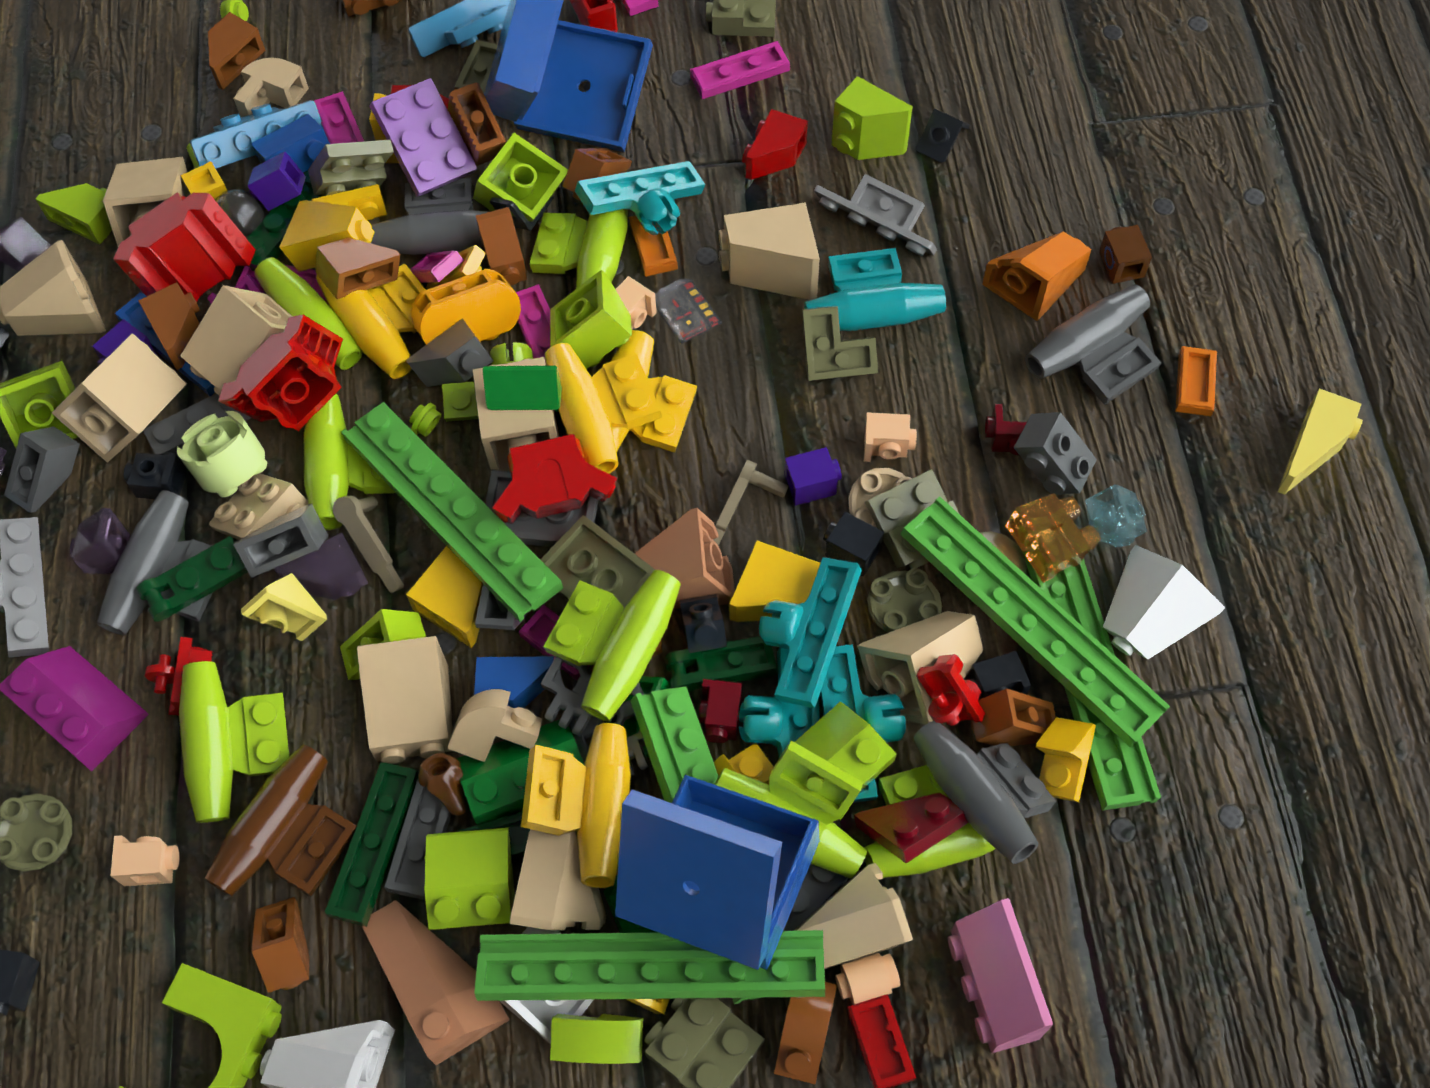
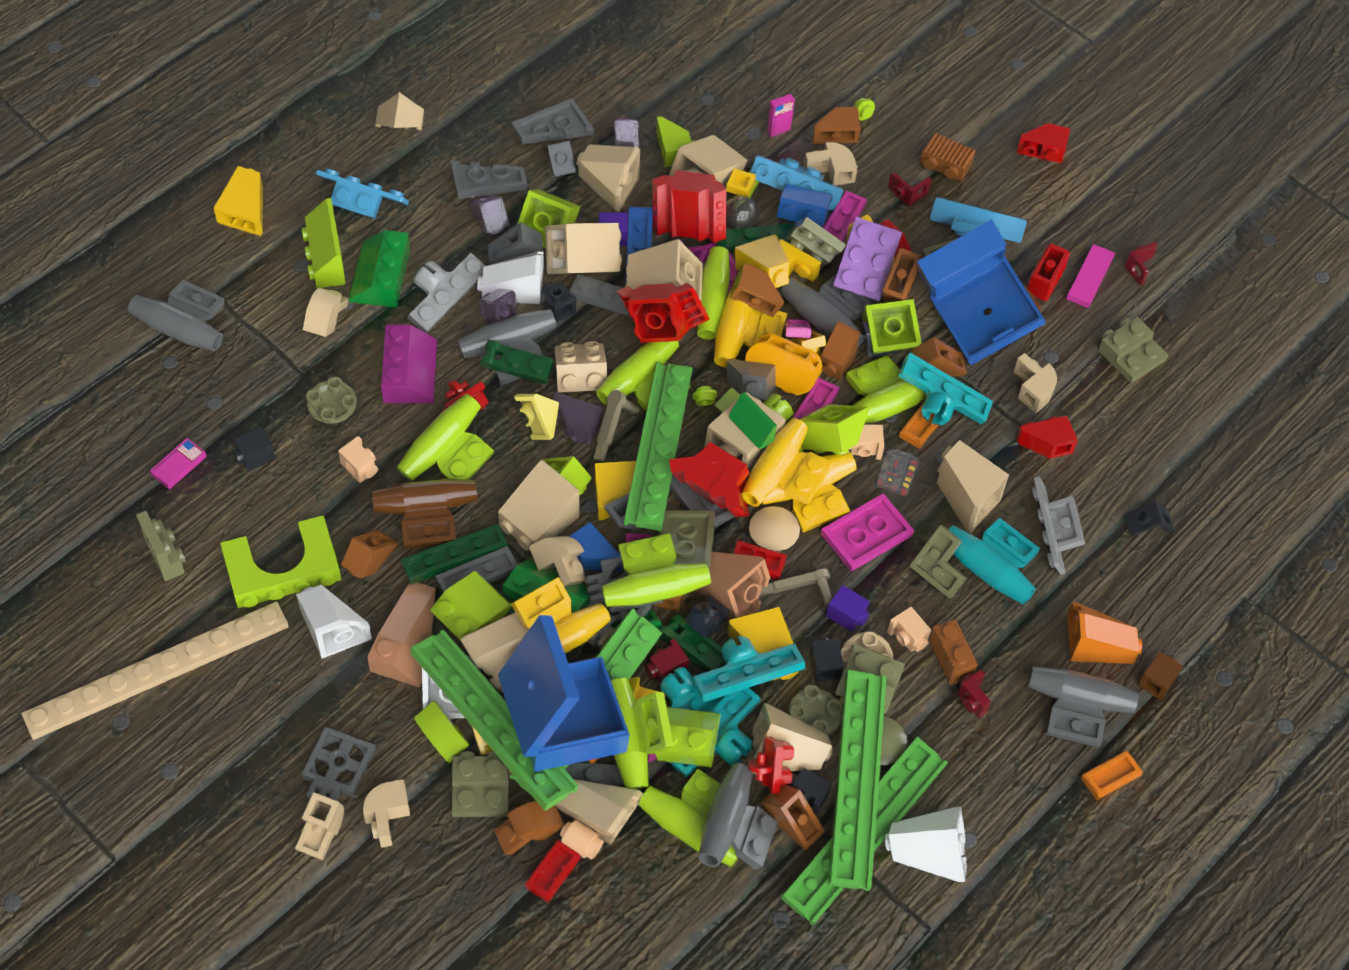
camera: 45 degrees right, 5 degrees down
(79, 491) = (518, 274): none -> white slope
(163, 85) = (780, 115): none -> dark pink tile
(172, 319) = (647, 232): dark orange slope -> none
(222, 453) = (595, 318): yellowish green brick -> none
(276, 181) = (774, 214): dark purple brick -> none
(282, 540) = (571, 383): dark grey slope -> none
(368, 50) = (904, 191): none -> dark red bracket
(442, 778) = (510, 555): reddish brown animal -> none
(649, 476) = (774, 528): none -> tan dish
(662, 517) = (774, 560): none -> red plate
(708, 104) = (1038, 383): none -> tan brick
(734, 389) = (867, 532): none -> dark pink plate
(739, 70) = (1088, 382): dark pink tile -> none
(870, 122) = (1108, 472): lime slope -> none
(911, 825) = (680, 797): dark red wing -> none
(948, 415) = (952, 651): none -> dark orange brick
(999, 977) = (634, 903): bright pink slope -> none
(1050, 535) = (918, 754): clear orange hips -> none
(1055, 453) = (976, 722): dark grey brick -> none
(1066, 757) = (799, 852): yellow slope -> none
(1116, 515) = (970, 784): clear light blue brick -> none
(1322, 434) = (1134, 867): light yellow slope -> none

